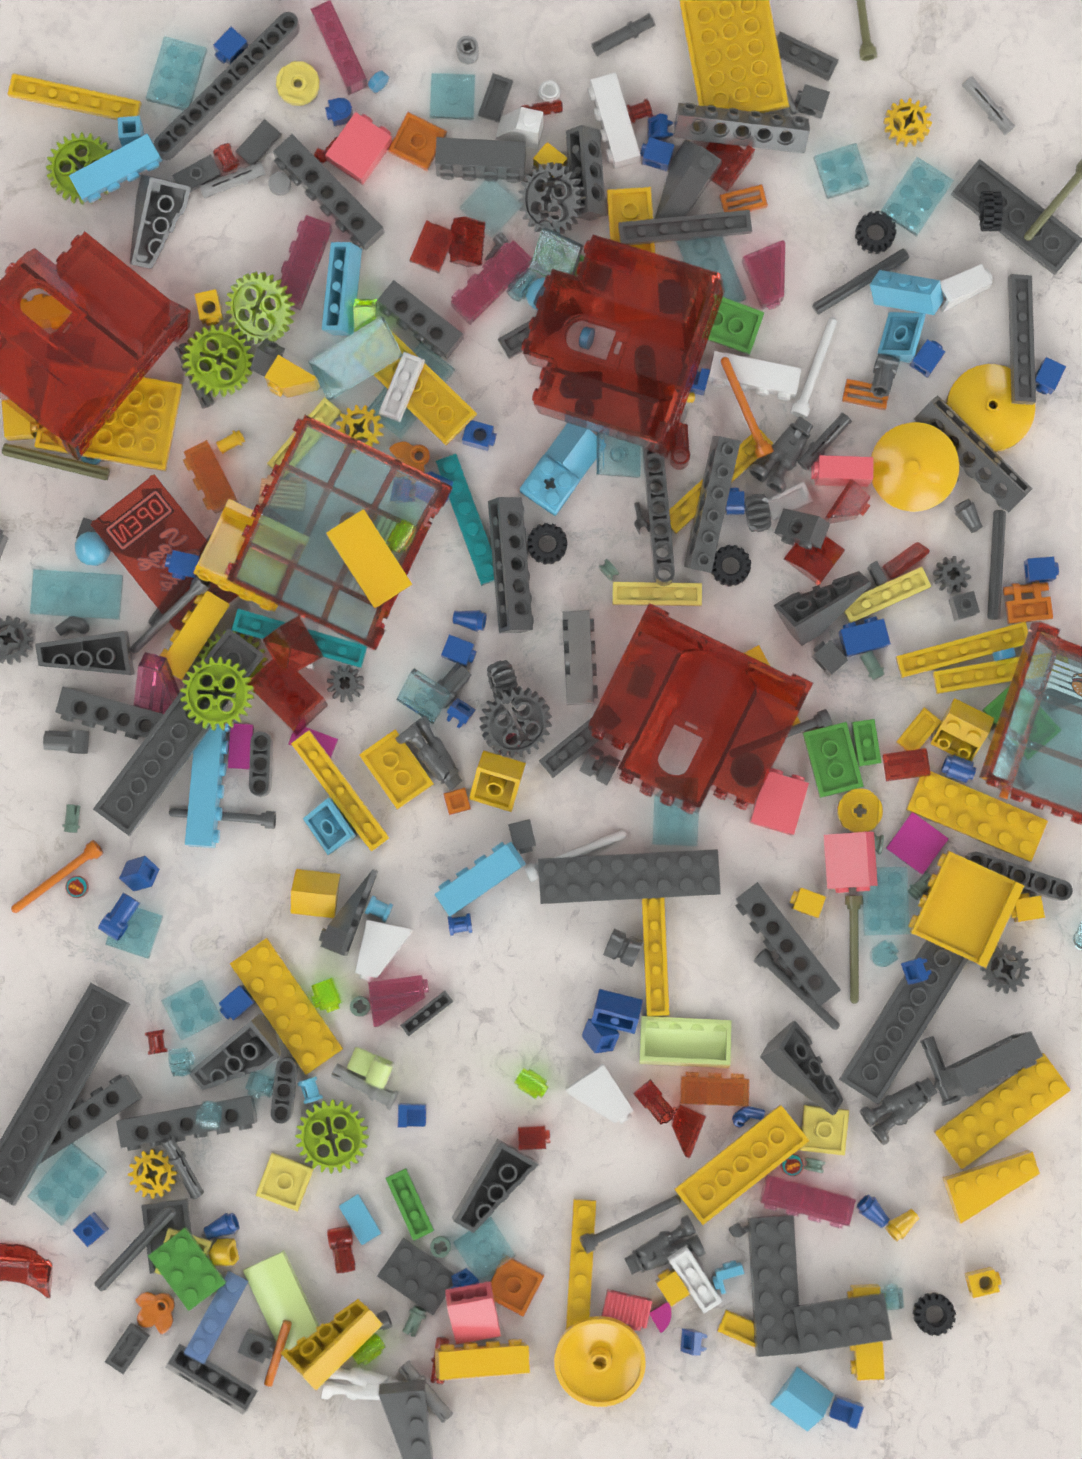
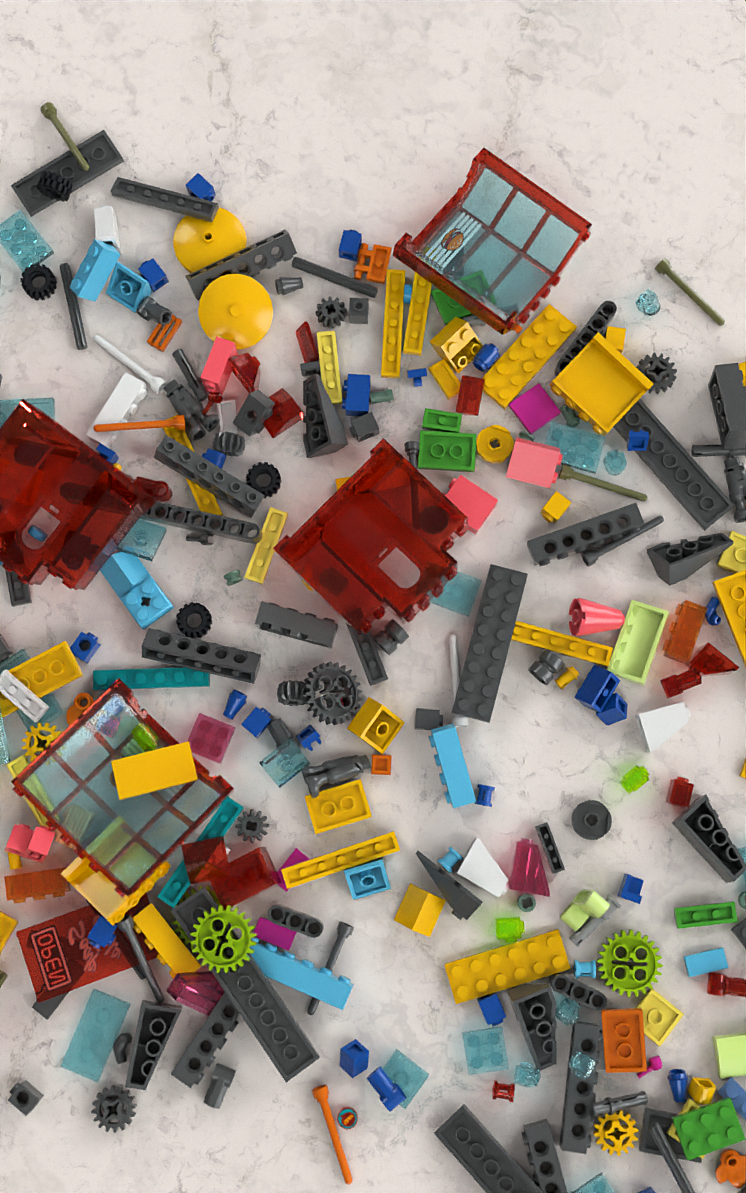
camera: 70 degrees left, 5 degrees down
(72, 818) = (287, 1103): sand green pin -> none
(91, 549) = (61, 1008): medium azure hair -> none
(236, 1196) = (656, 1064): none -> dark pink hand
(249, 1154) = (624, 1040): none -> orange plate
(250, 454) = (30, 843): none -> coral brick
(424, 606) = (210, 738): none -> clear pink plate
(462, 1058) = (582, 826): none -> dark grey plate
(619, 974) = (568, 676): none -> yellow pin
(695, 983) = (593, 617): none -> coral cone
(736, 326) = (73, 411): bright green plate -> none
(767, 274) = (40, 375): clear pink slope -> none
(805, 476) = (213, 397): none -> clear red hand
(911, 696) = (416, 374): none -> blue tile

